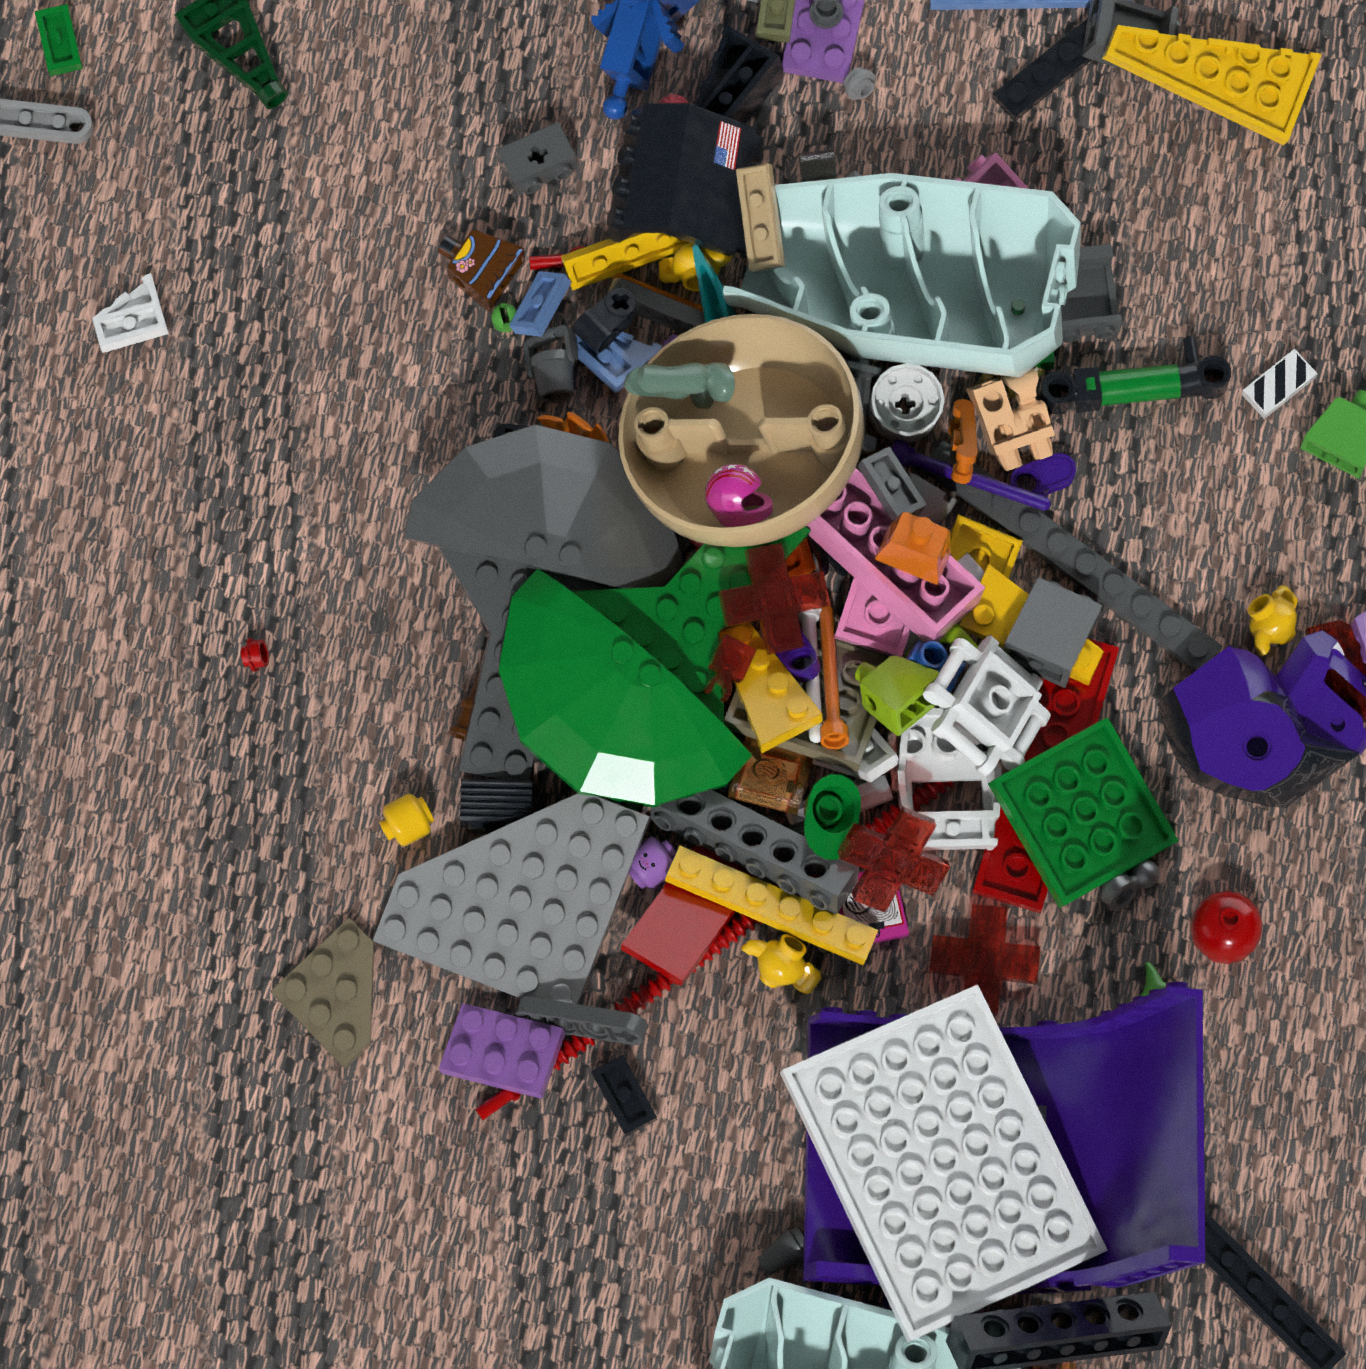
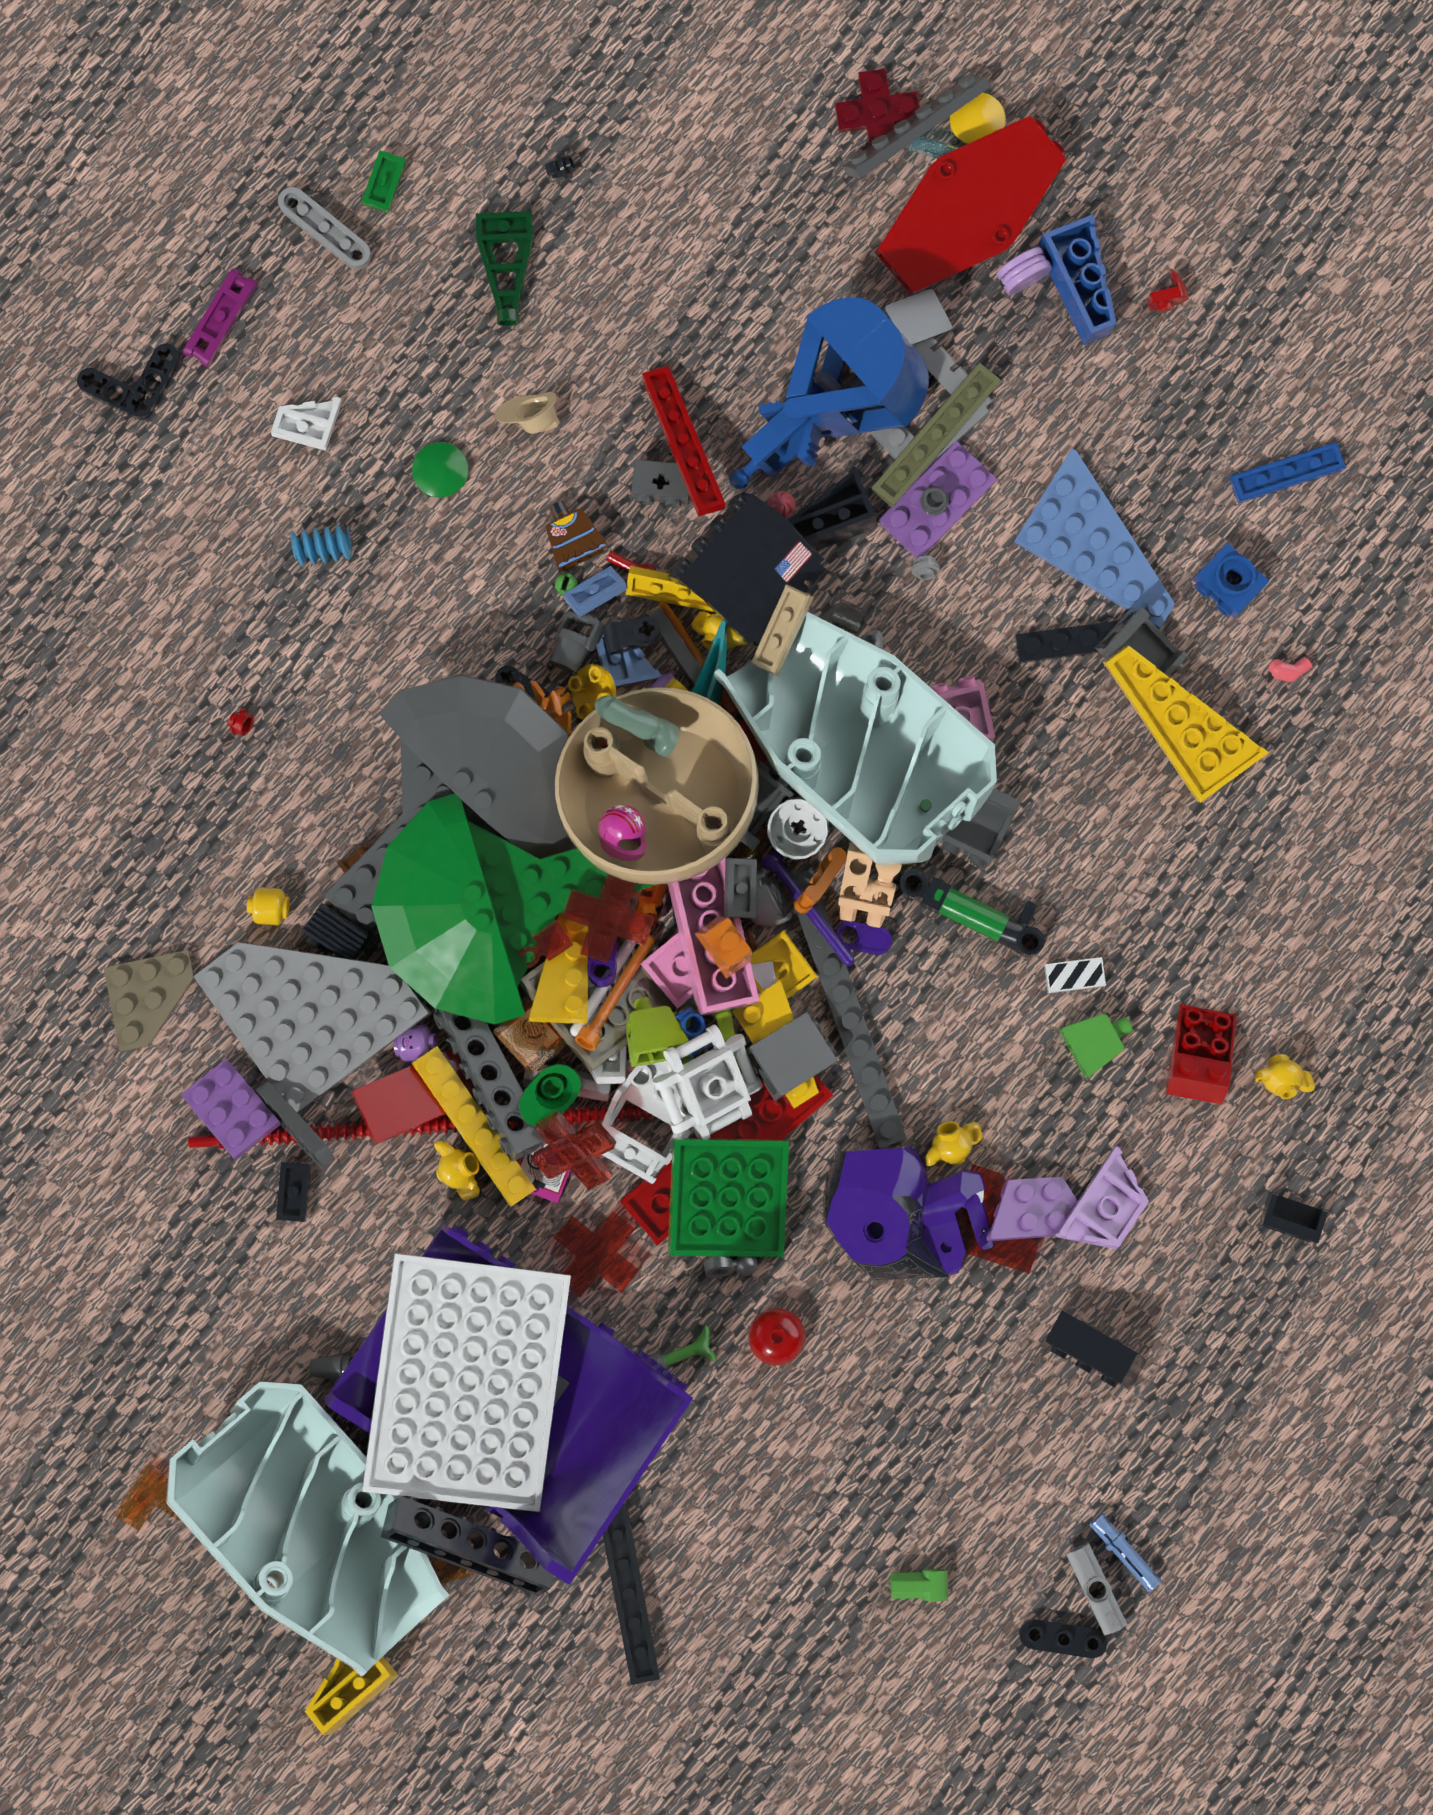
camera: 30 degrees right, 10 degrees up
(225, 425) = (322, 545): none -> dark azure piece
(300, 283) = (440, 470): none -> green dish
(359, 171) = (531, 412): none -> tan piece
(535, 102) = (683, 441): none -> red plate
(600, 399) = (589, 685): none -> yellow dish

